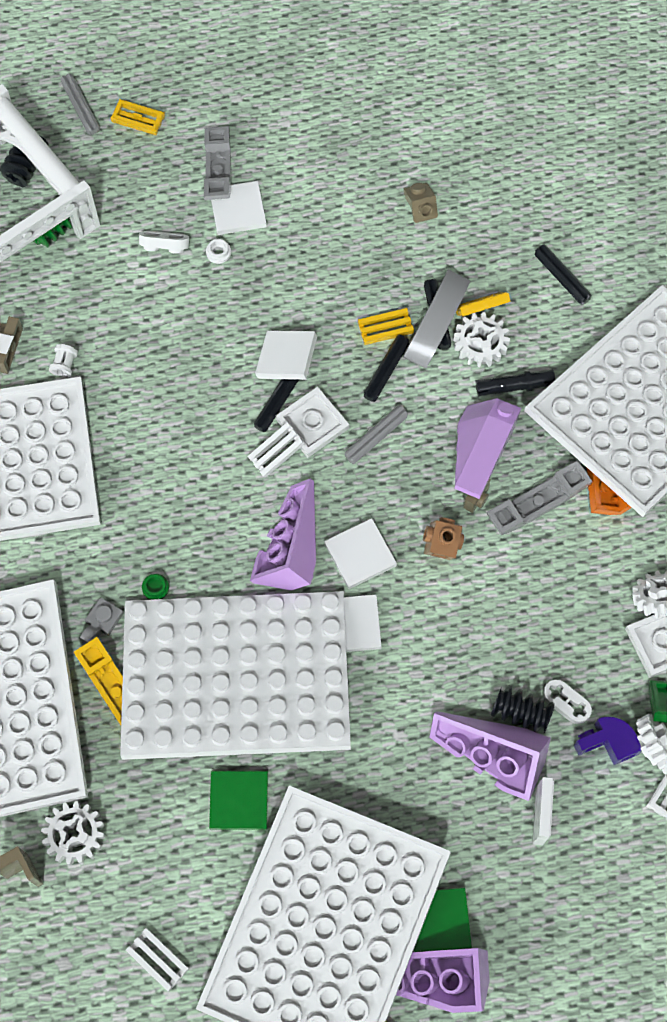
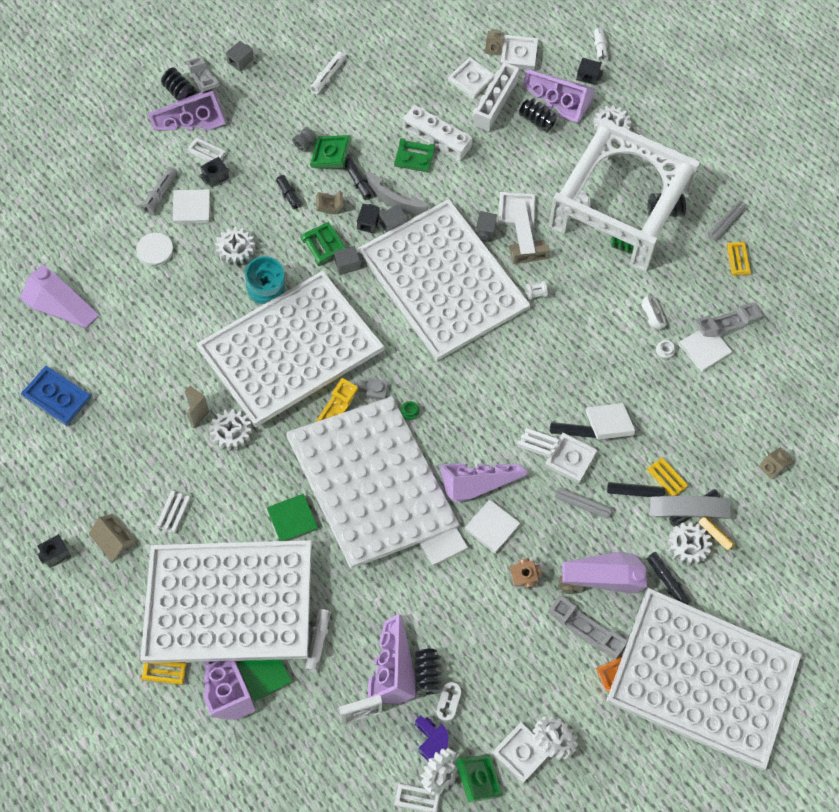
camera: 65 degrees right, 5 degrees down
(419, 829) = (319, 632): none -> white pin
(563, 274) = (772, 581): black axle -> none

